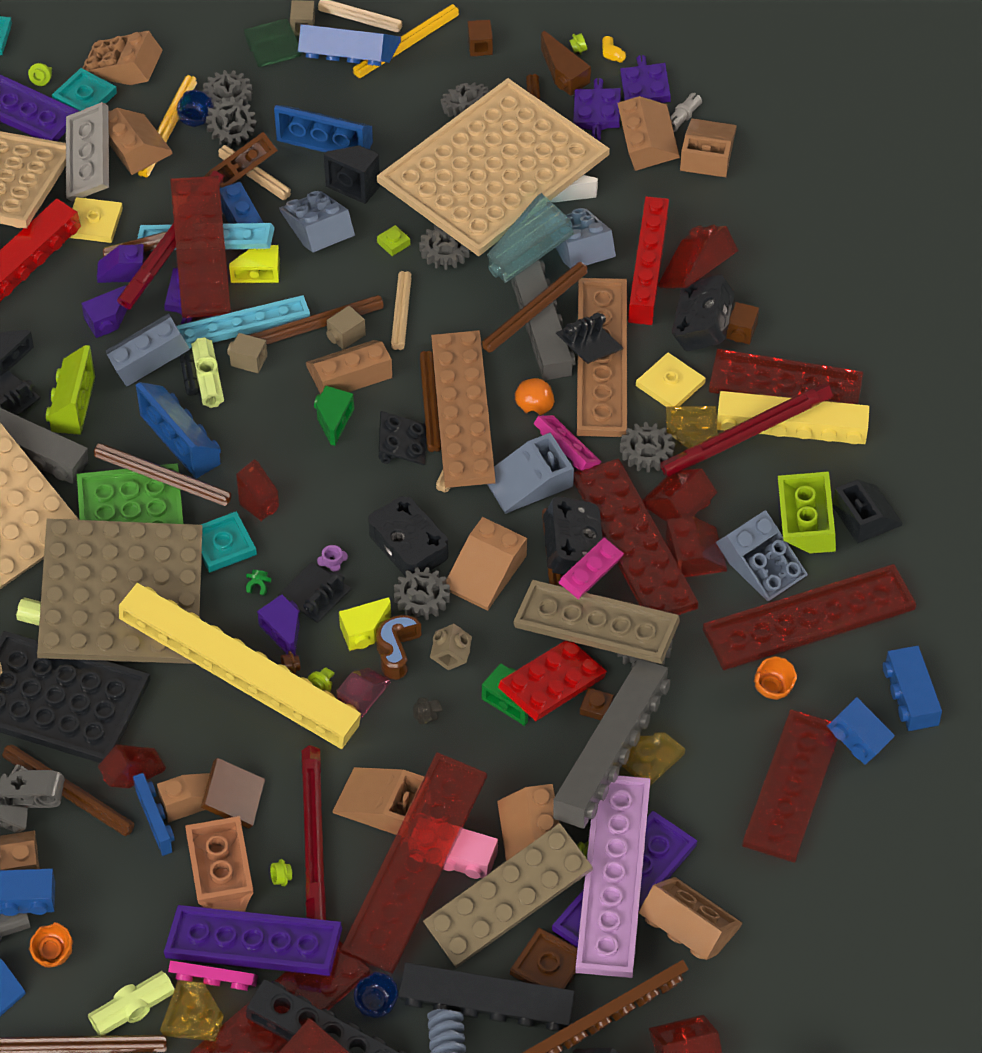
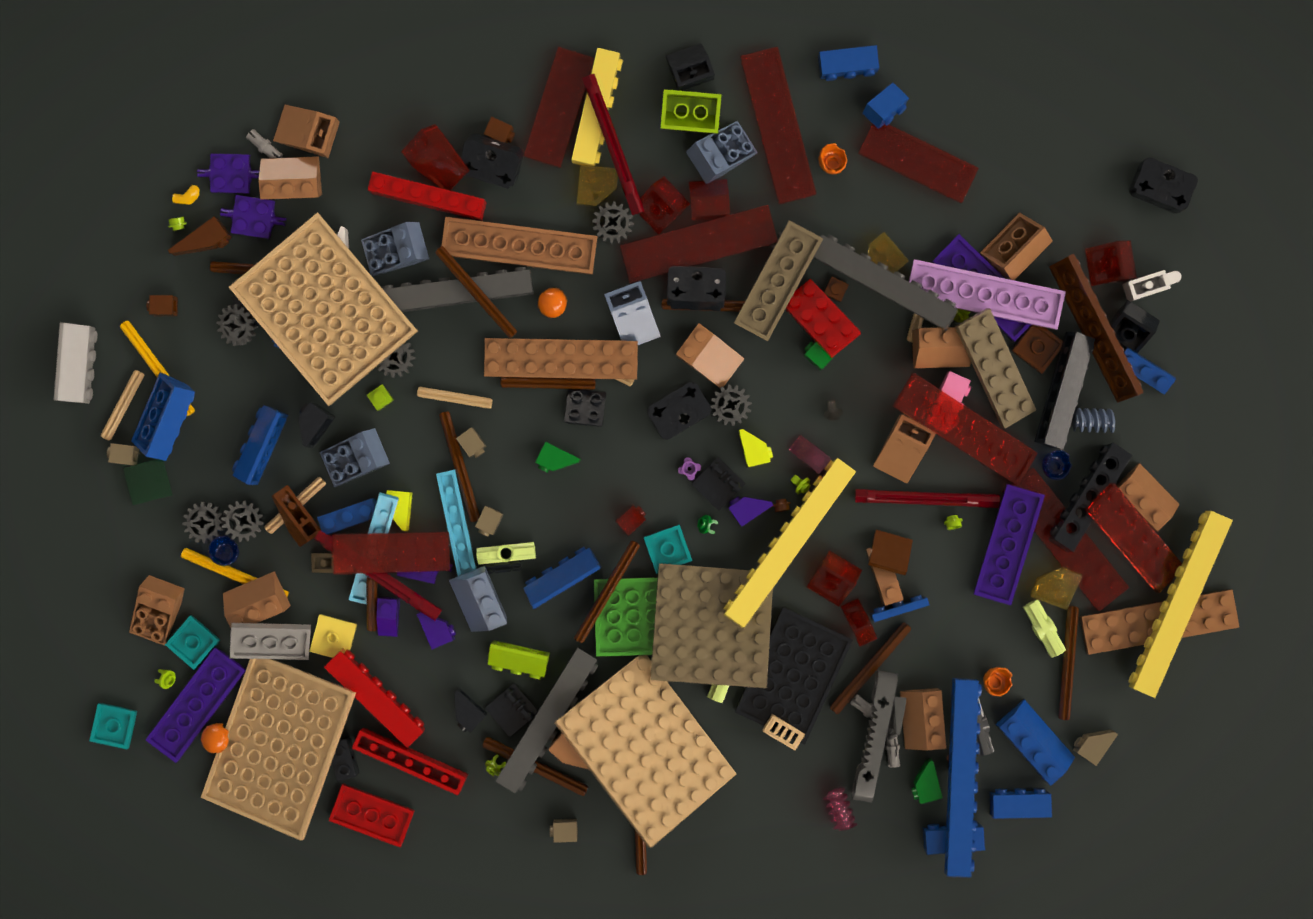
camera: 80 degrees left, 35 degrees up
(194, 731) = (834, 578): none -> clear red slope
(212, 975) = (1029, 573): dark pink plate -> none
(220, 864) = (945, 564): nougat slope -> none
(352, 367) = (508, 442): medium nougat slope -> none
(389, 646) = (774, 433): reddish brown animal -> none
(451, 646) = (782, 388): dark tan brick -> none
(529, 238) = (409, 286): clear light blue slope -> none
(576, 451) = (602, 282): dark pink plate -> none
(589, 338) = (511, 253): black hinge -> none
(591, 568) = (733, 278): dark pink plate -> none
(670, 381) = (547, 196): light yellow plate -> none

